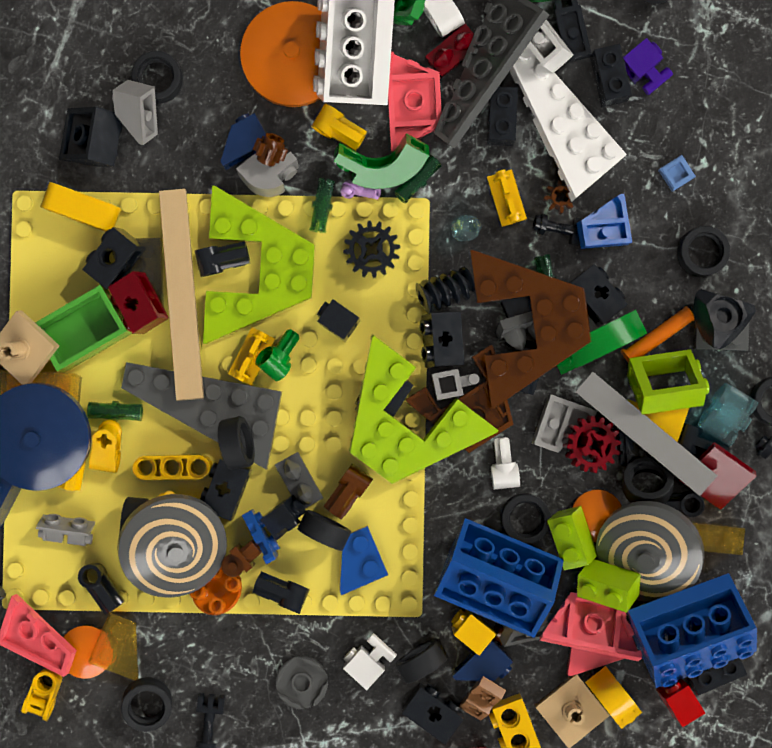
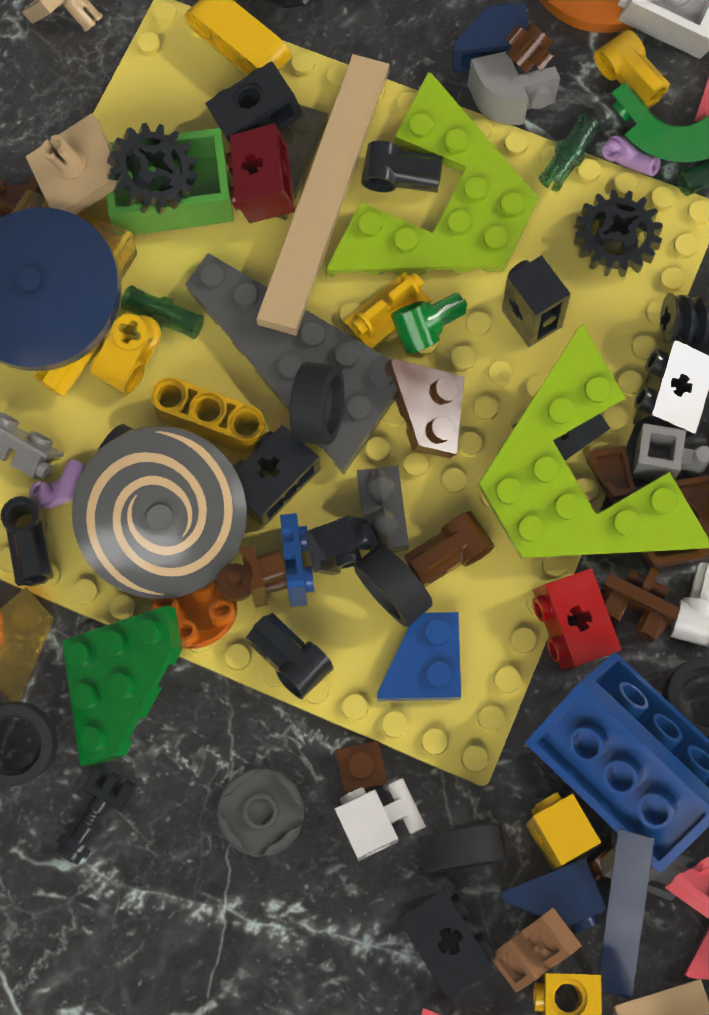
camera: 25 degrees right, 15 degrees down
(71, 347) = (154, 150): none -> black gear
(104, 547) = (58, 492): none -> lavender arm
(189, 645) = (116, 679): none -> green plate
(301, 409) = (430, 406): none -> wing
(347, 634) = (361, 767): none -> reddish brown plate
(449, 509) = (594, 633): none -> red brick
(480, 481) = (642, 596): none -> reddish brown hips
(523, 661) = (625, 913): none -> sticker

